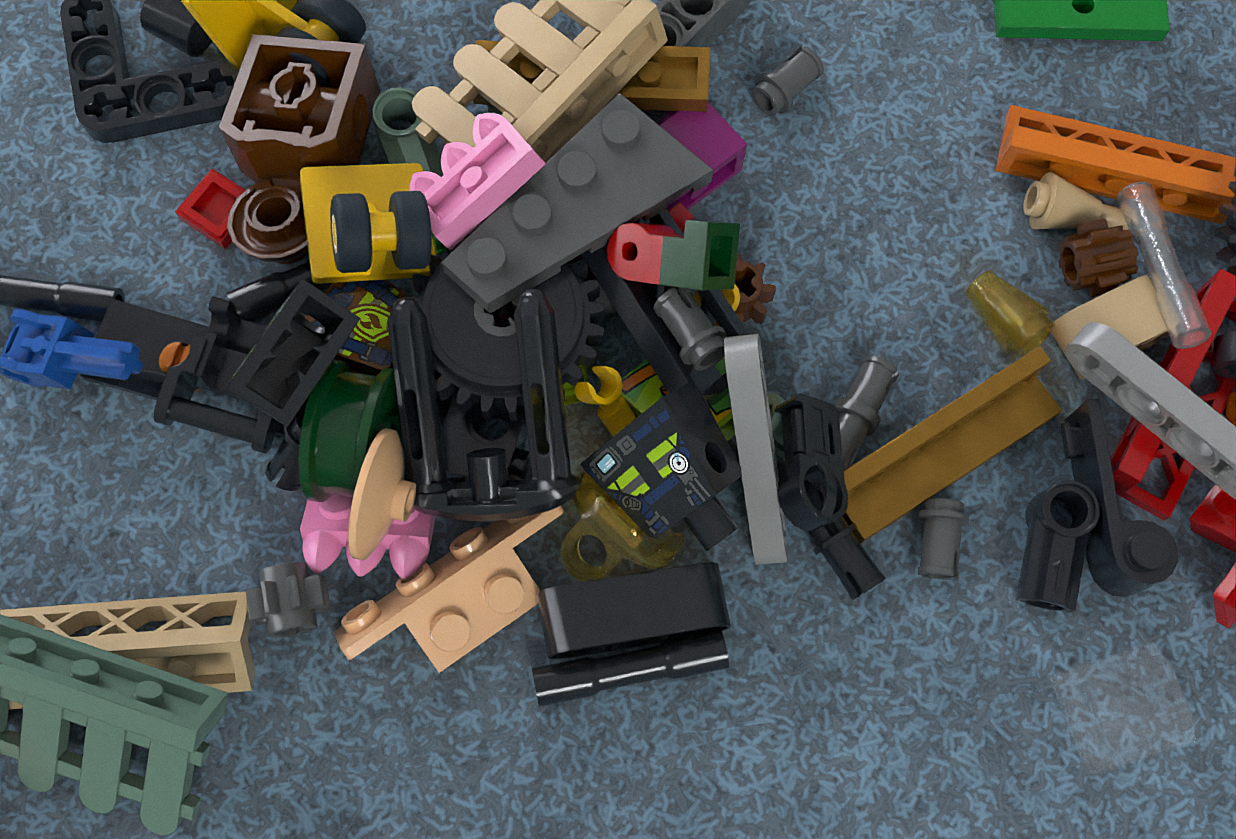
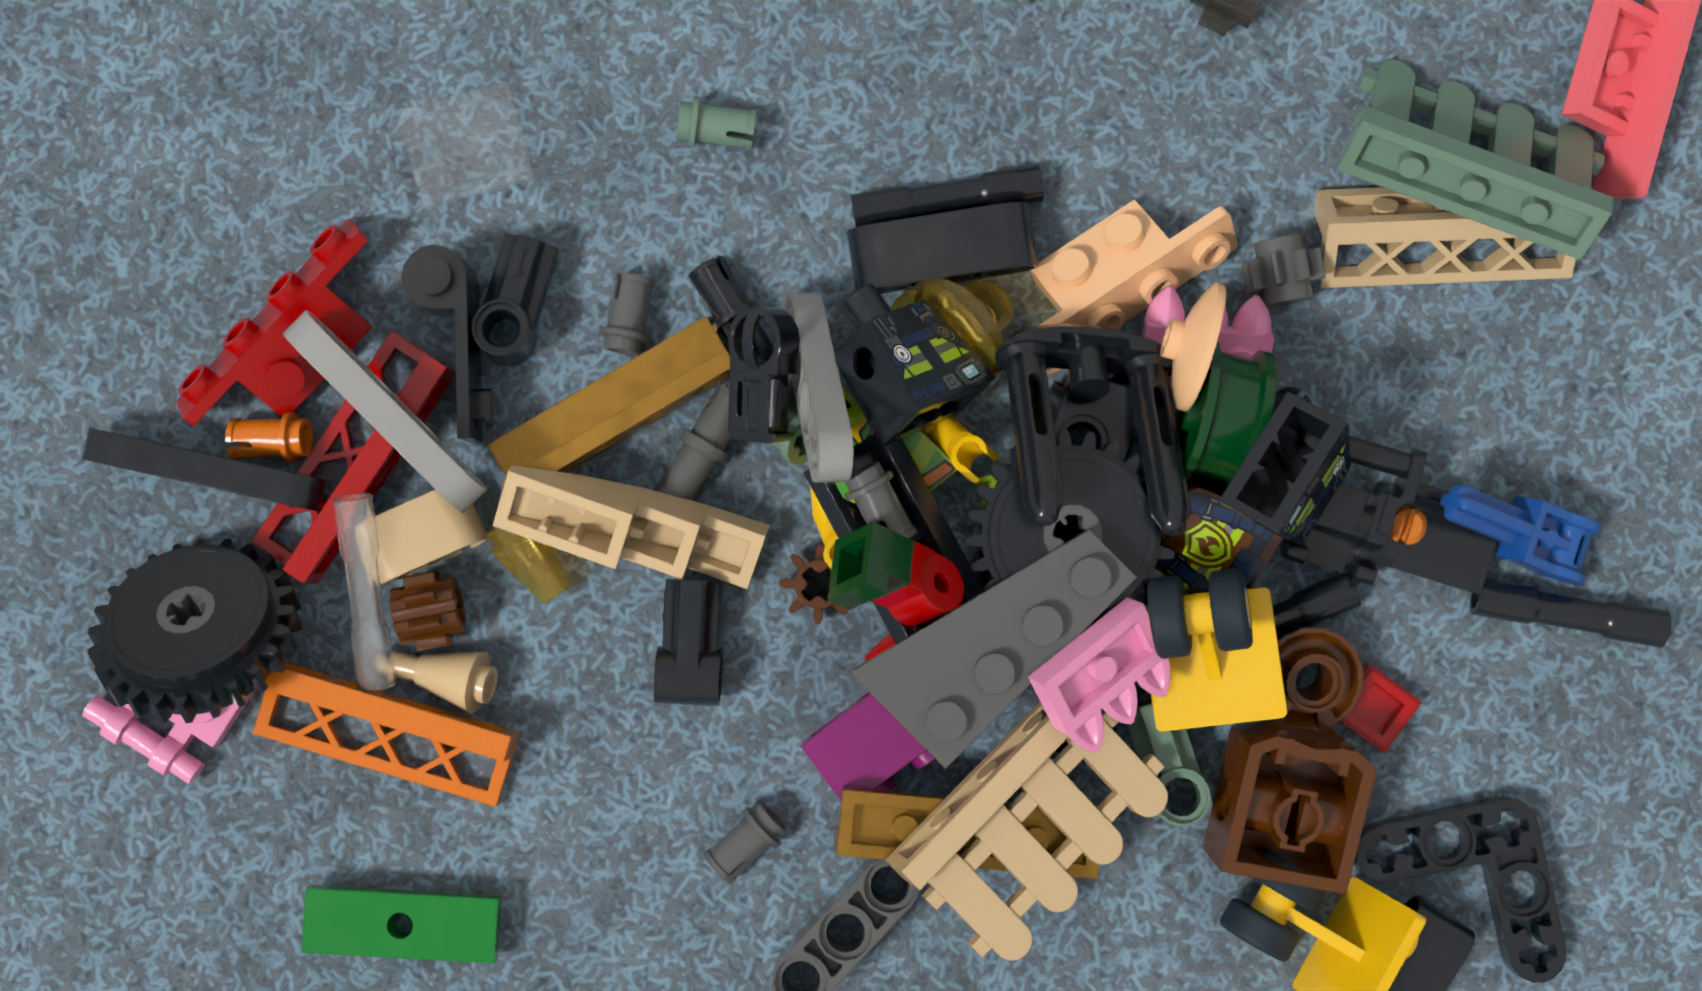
camera: 175 degrees left, 15 degrees up
(852, 225) = (689, 659): none -> black piece
(873, 734) = (715, 125): none -> sand green pin
(945, 333) = (629, 522): none -> tan slope

